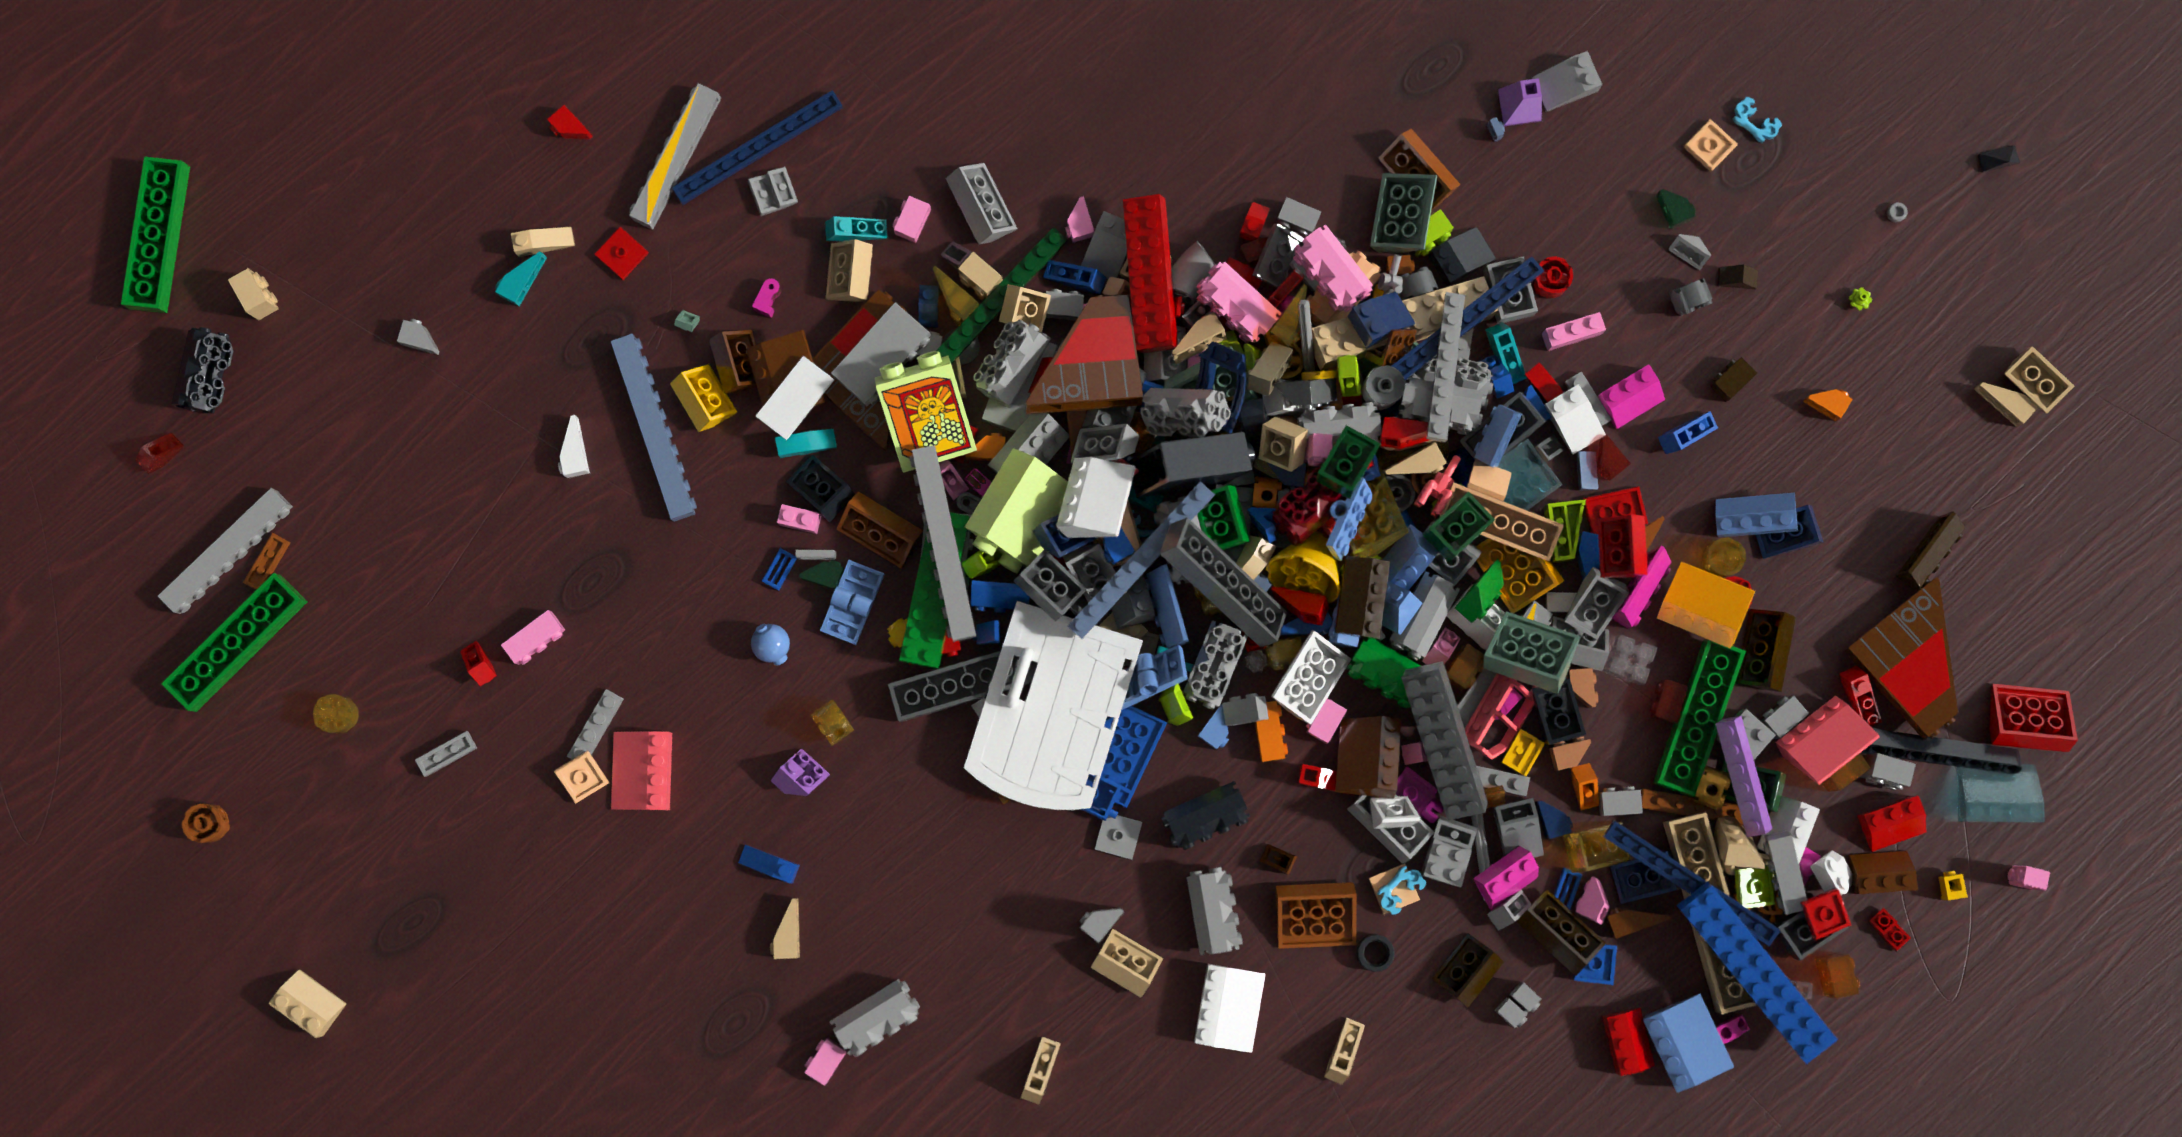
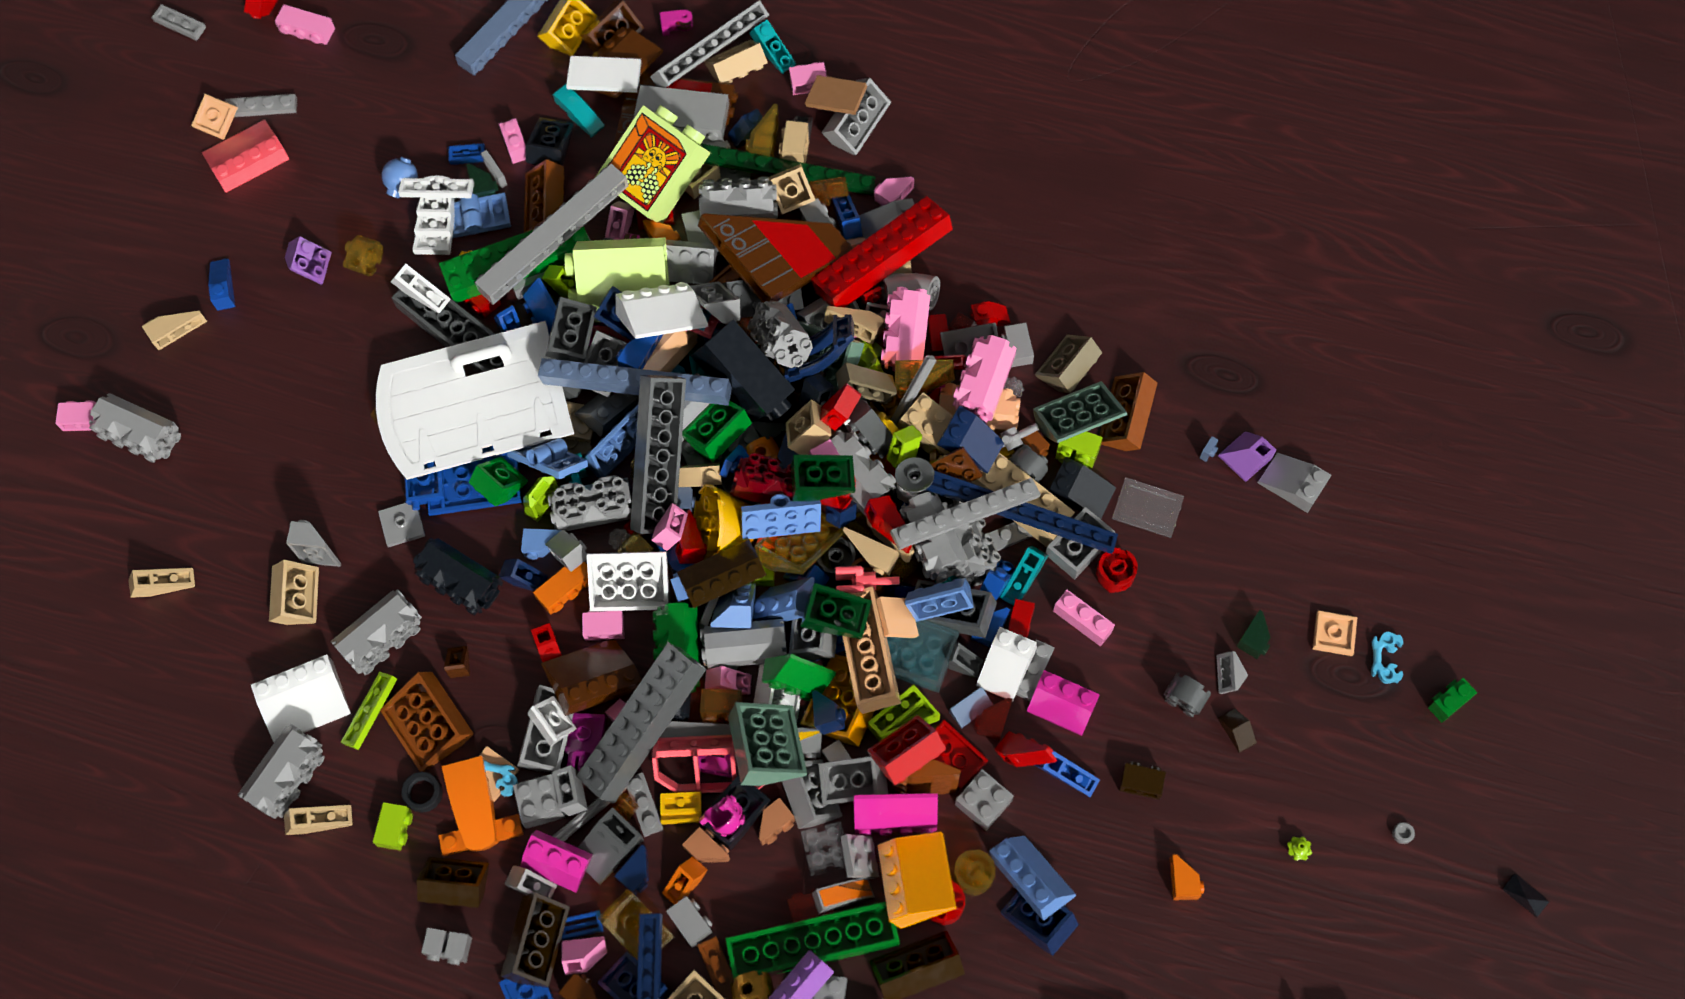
camera: 60 degrees right, 15 degrees down
(825, 284) = (709, 45): none -> light grey brick
(832, 632) = (435, 210): none -> white slope
(911, 691) = (420, 289): none -> white slope
(956, 207) = (836, 94): none -> medium nougat tile
(1039, 279) = (829, 188): none -> clear orange slope
(1141, 731) = (497, 480): none -> green slope
(1237, 761) = (522, 575): none -> dark blue slope
(1276, 957) = (369, 710): none -> lime plate
(1288, 407) = (839, 407): none -> red slope
(1288, 613) = (670, 527): none -> bright pink slope
(1288, 1058) = (281, 771): none -> light grey brick
(1342, 187) = (1069, 363): none -> dark tan slope
(1390, 993) = (392, 826): none -> lime brick
(1422, 919) = (474, 810): none -> orange slope
(1510, 213) = (1148, 507): none -> clear piece
(1528, 587) = (827, 714): none -> dark blue slope
(1565, 722) = (724, 816): none -> dark pink helmet
(1654, 458) = (1023, 752): none -> red slope
(1656, 637) = (859, 856): none -> light grey plate
(1675, 508) = (984, 800): none -> light grey brick
(1678, 670) = (842, 894): none -> slope
(1824, 98) = (1448, 703): none -> green brick

